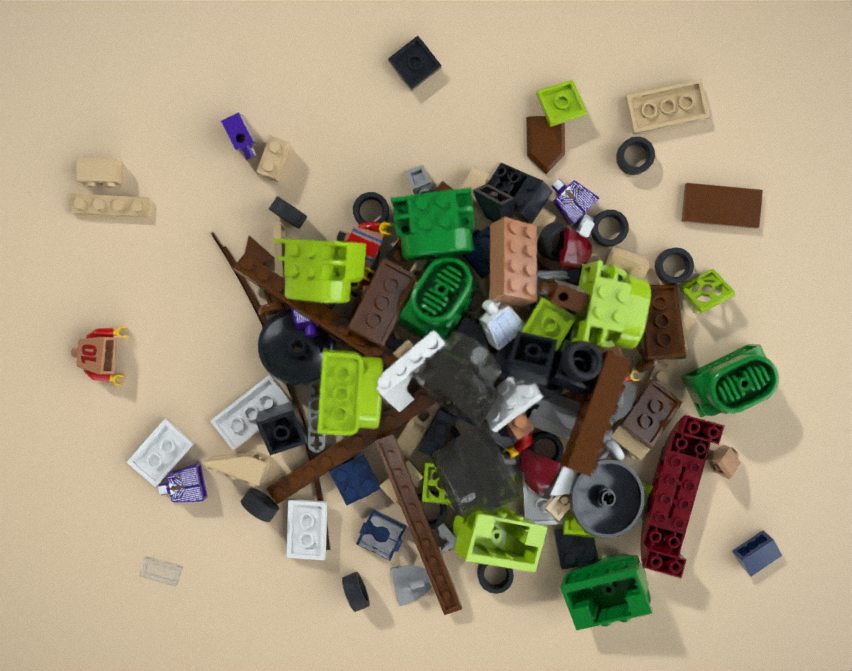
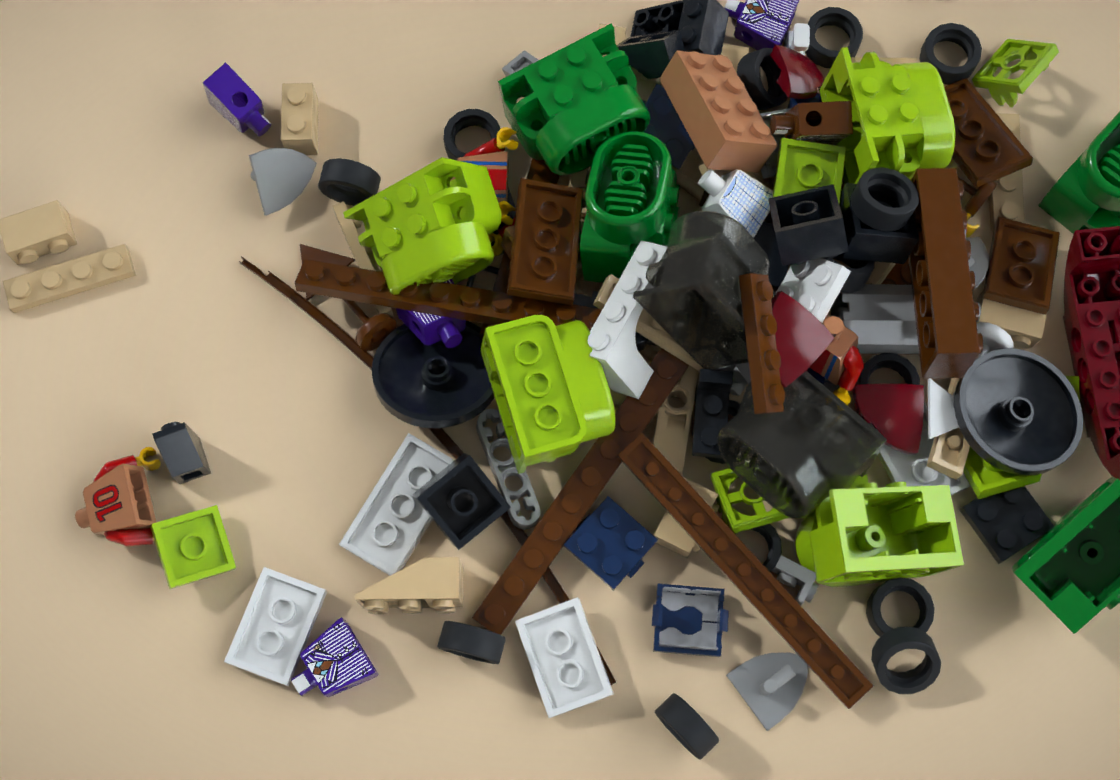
camera: 25 degrees left, 15 degrees down
(129, 393) = (193, 546): none -> lime plate
(140, 338) = (182, 452): none -> black slope
(250, 192) = (280, 176): none -> light grey shield
(472, 423) = (761, 343): none -> reddish brown plate
(488, 595) = (914, 679): none -> black tyre
(494, 423) = (798, 337): none -> dark red brick

